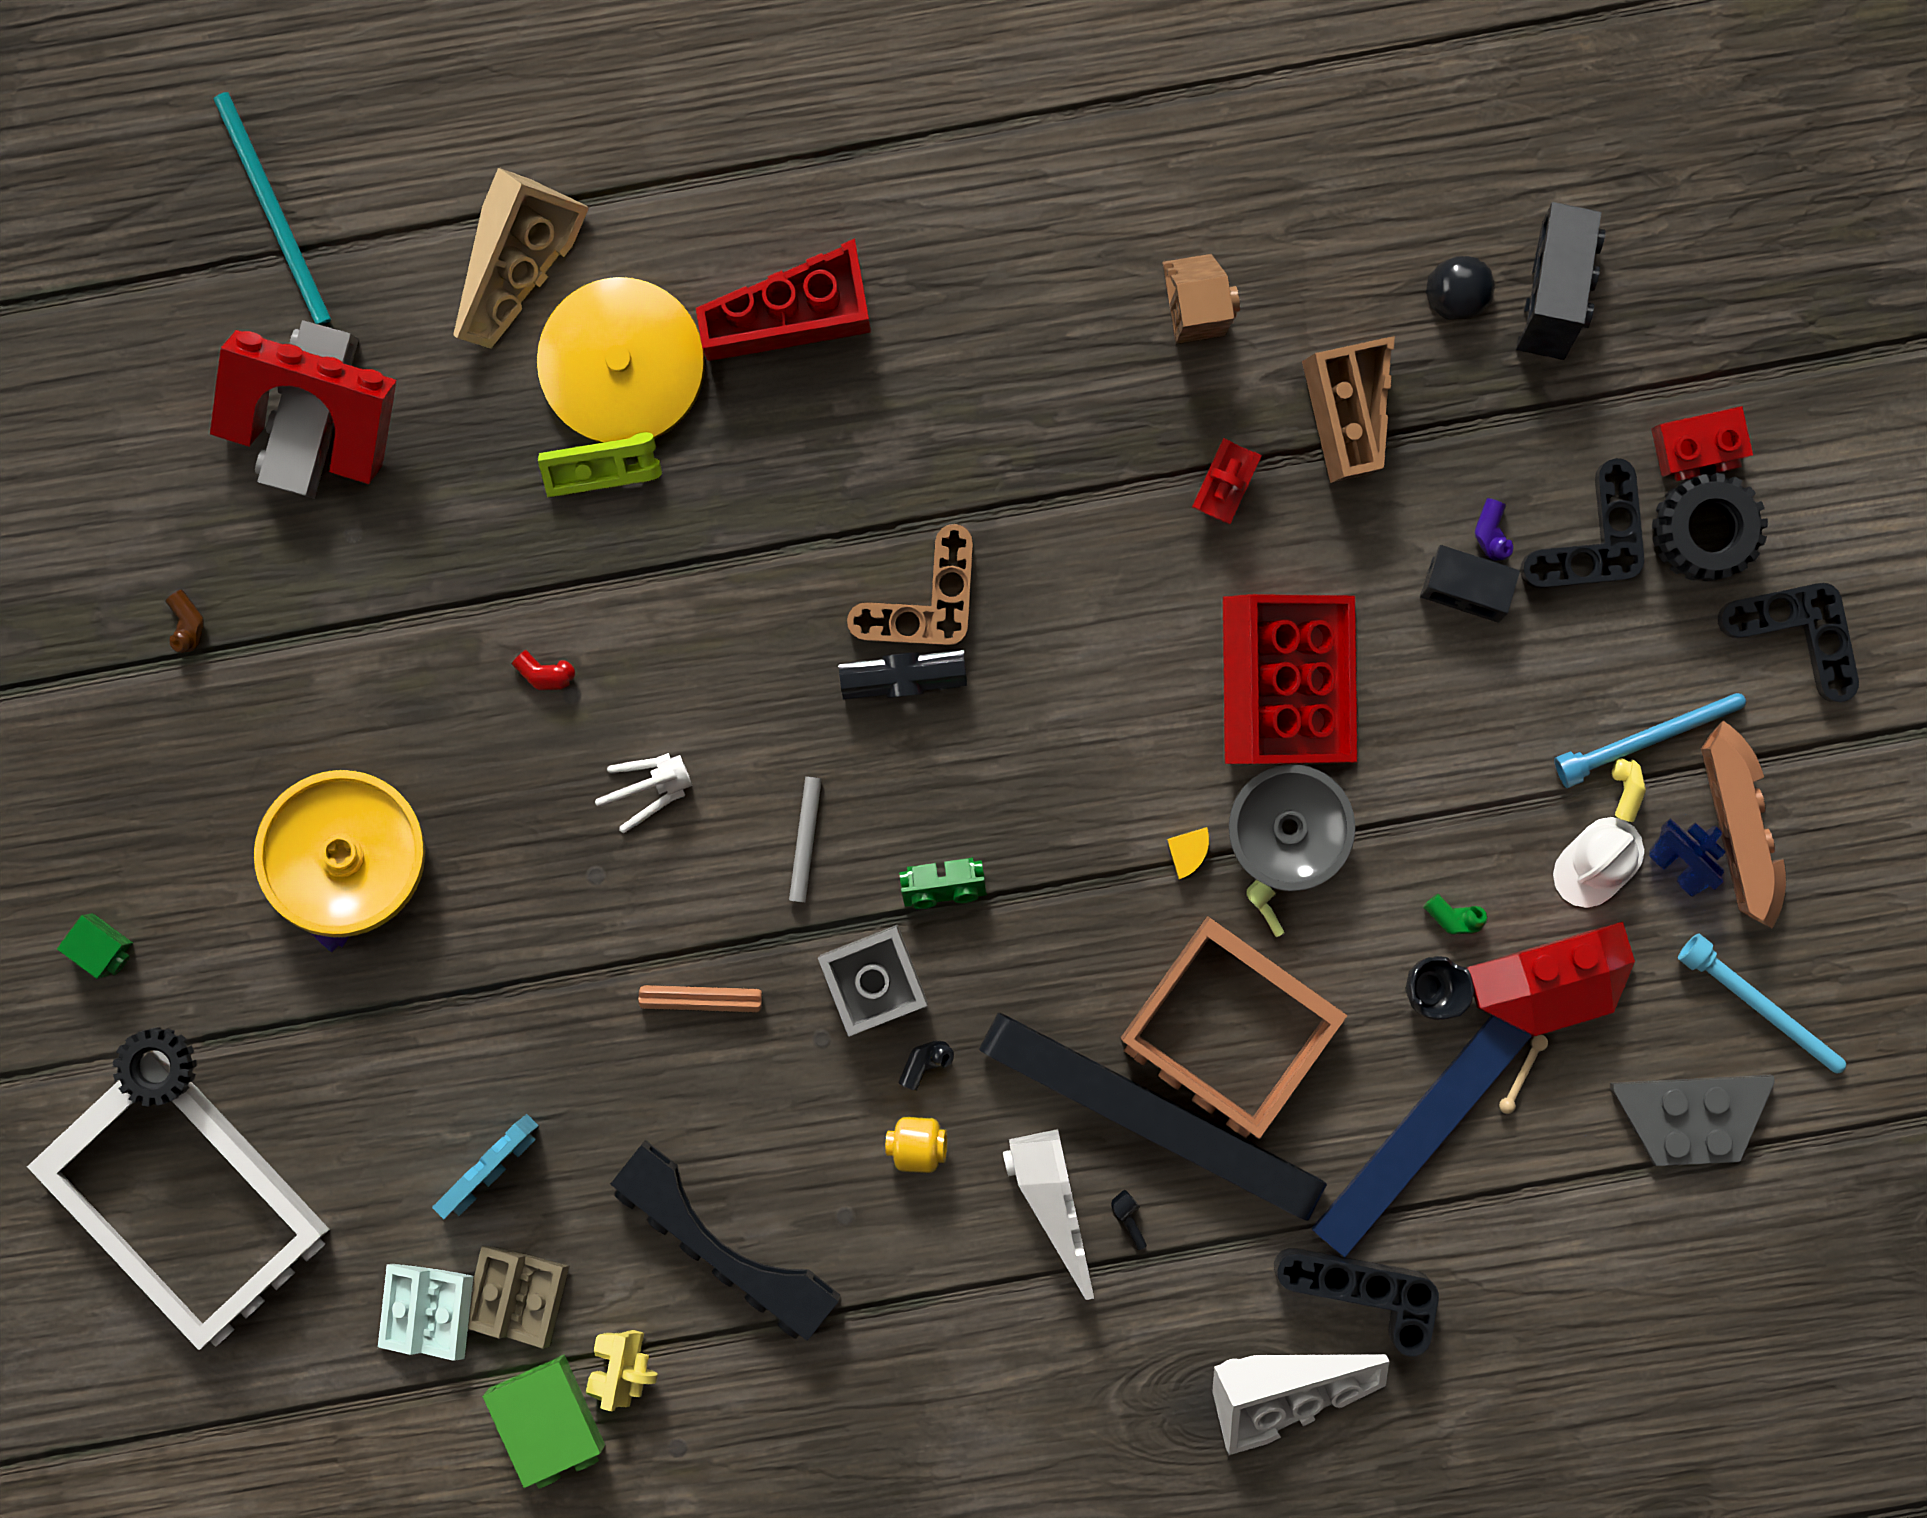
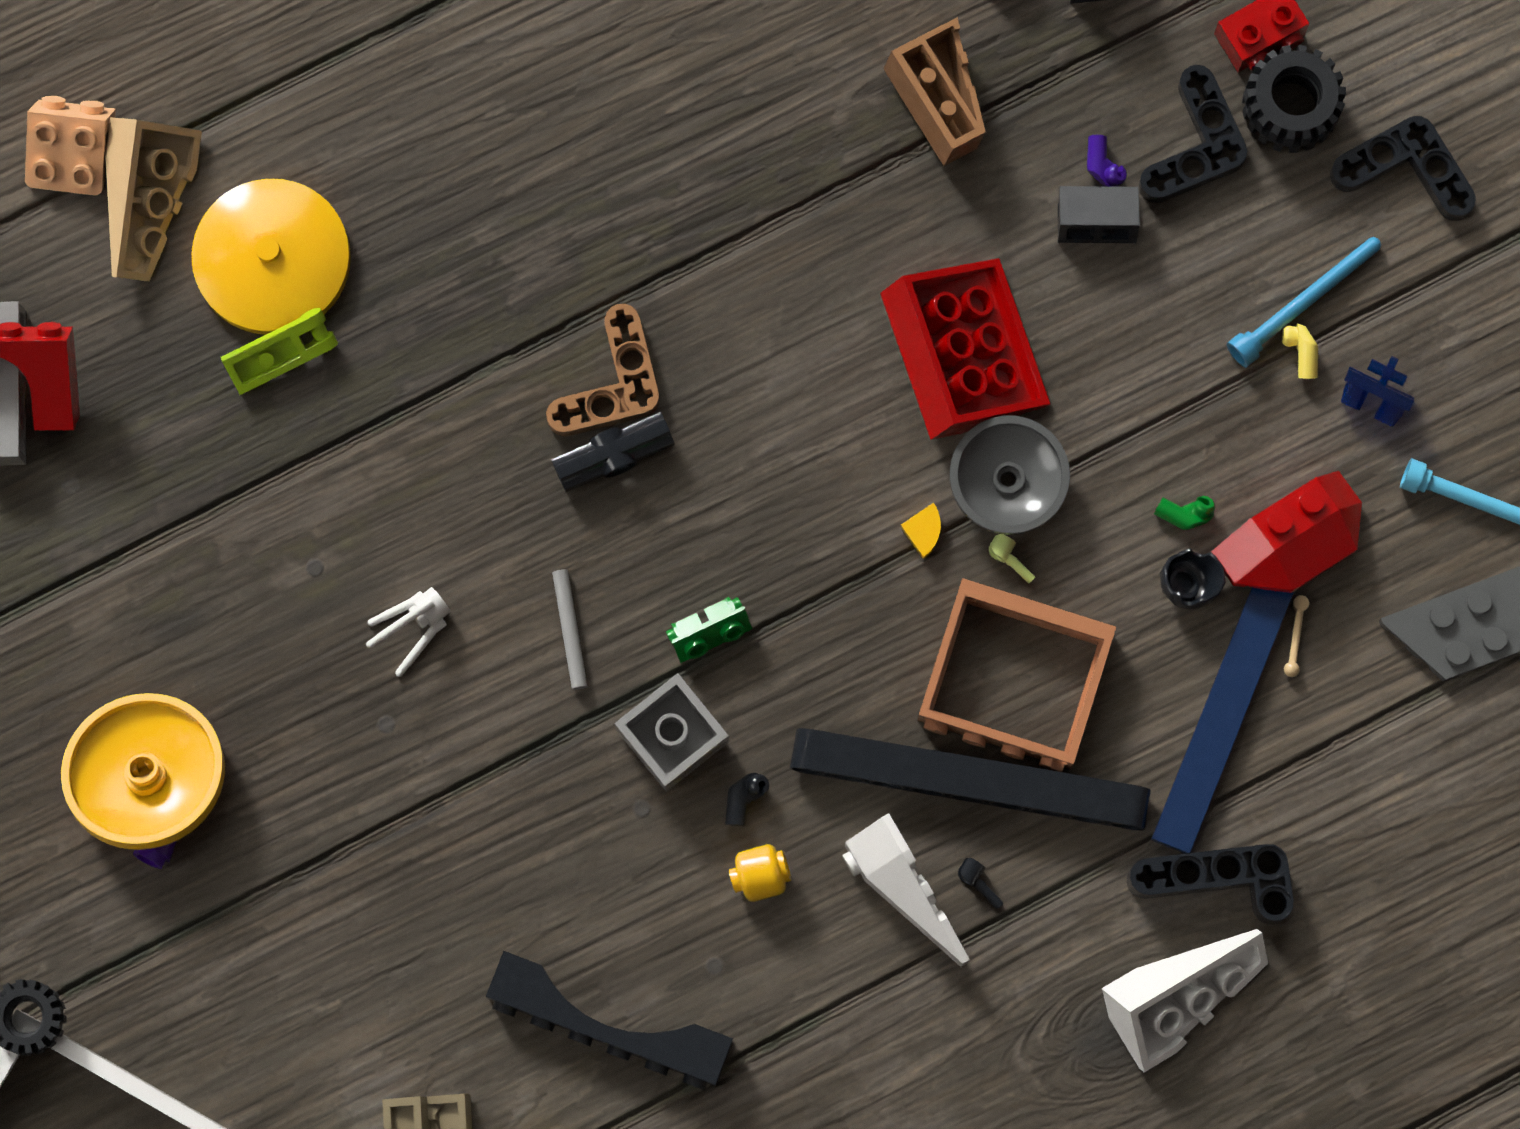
camera: 15 degrees left, 10 degrees down
(448, 179) = (67, 145): none -> light nougat bracket
(488, 1169) = (347, 1055): medium azure wing -> none
(544, 676) = (285, 556): red arm -> none
(700, 998) = (517, 804): nougat axle -> none
(789, 308) = (409, 160): red wedge -> none
(1199, 298) = (776, 41): medium nougat wedge -> none
(1226, 481) = (850, 191): red hips -> none
(1598, 862) = (1298, 426): white piece -> none
(1738, 806) = (1406, 334): nougat brick -> none

